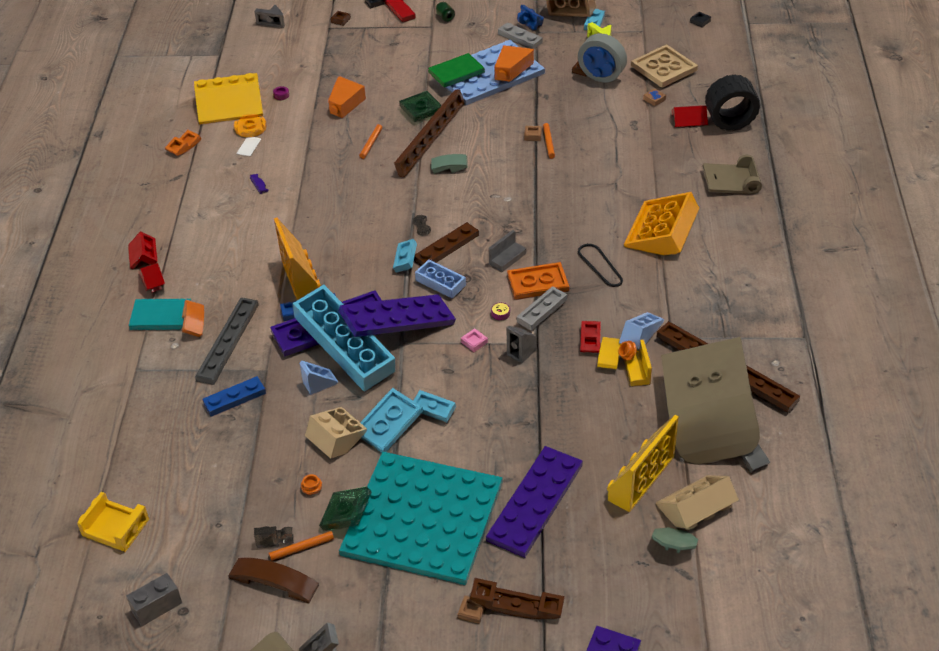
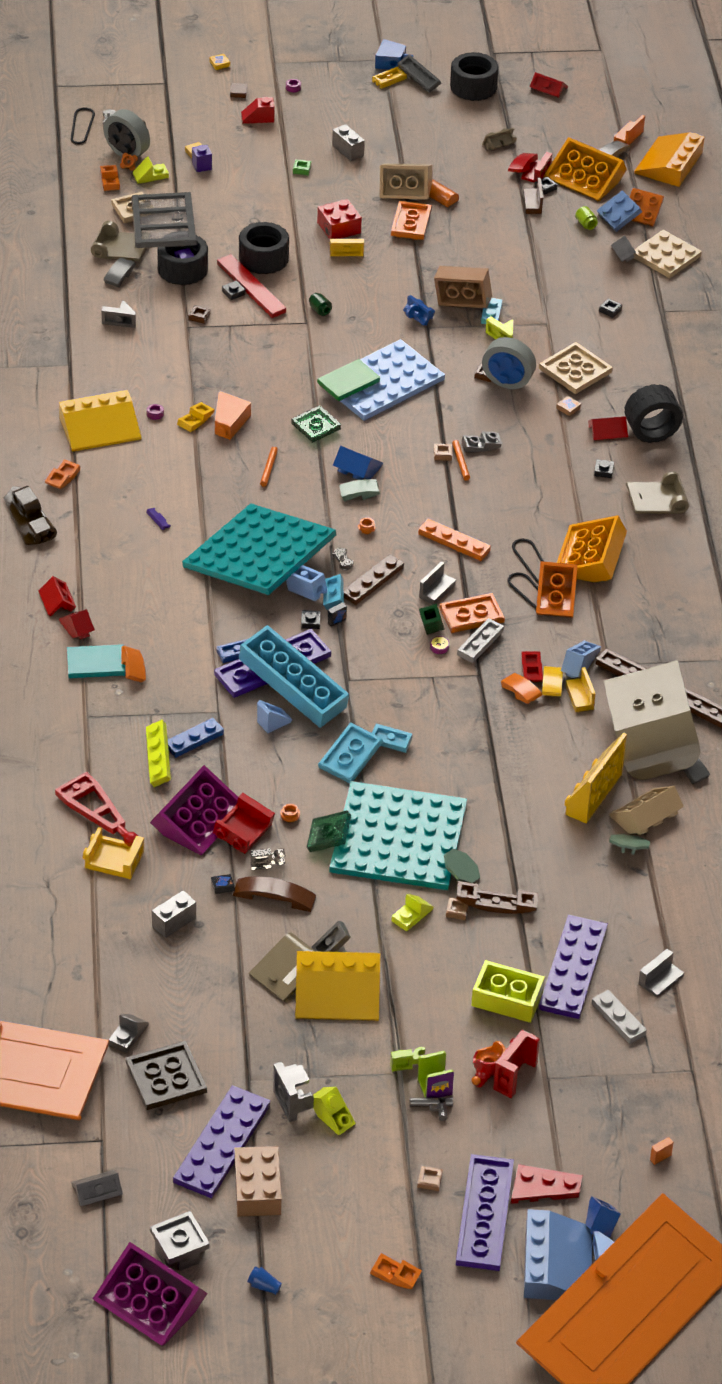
camera: 10 degrees left, 0 degrees up
(101, 445) = (83, 785): none -> plate
(140, 179) = (28, 516): none -> dark brown panel
(191, 412) = (158, 753): none -> neon yellow plate
(214, 478) = (194, 810): none -> magenta slope
(219, 564) = (222, 884): none -> black tile
(227, 341) = (172, 682): dark grey tile -> none
(248, 146) = (135, 475): white sticker -> none
(250, 125) = (130, 451): light orange tile -> none
(258, 495) = (244, 823): none -> red panel
(295, 262) = (226, 607): light orange slope -> none
(301, 545) = (293, 865): orange bar -> none
(316, 98) = (197, 416): none -> yellow slope
(334, 431) = (302, 765): tan slope -> none
(343, 212) = (259, 548): none -> teal plate
(378, 244) = (307, 583): none -> light blue brick
(378, 281) = (310, 619): none -> black plate
(396, 315) = (342, 652): dark purple plate -> none
(403, 277) = (337, 614): none -> black tile
(420, 611) = (412, 912): none -> neon yellow slope
(429, 133) = (324, 469): reddish brown plate -> none
(440, 278) = (374, 614): light blue piece -> none
(449, 195) = (367, 525): none -> orange plate
(450, 140) = (356, 463): none -> blue slope
(474, 340) = (418, 674): bright pink tile -> none
(483, 558) = (461, 866): none -> sand green piece
(495, 285) = (431, 619): none -> dark green brick
(513, 62) = (410, 369): orange slope -> none
(520, 35) = (410, 333): light grey plate -> none
(520, 343) = (465, 676): flat silver slope -> none
(531, 211) = (454, 539): none -> orange plate
(534, 501) = (499, 817): dark purple plate -> none
(574, 125) = (486, 442): none -> flat silver slope
(577, 358) = (522, 688): none -> orange slope
(612, 229) = (527, 540): none -> black piece
(624, 260) = (556, 589): none -> orange slope
(627, 350) = (570, 677): orange plate -> none
(682, 151) = (604, 468): none -> plate

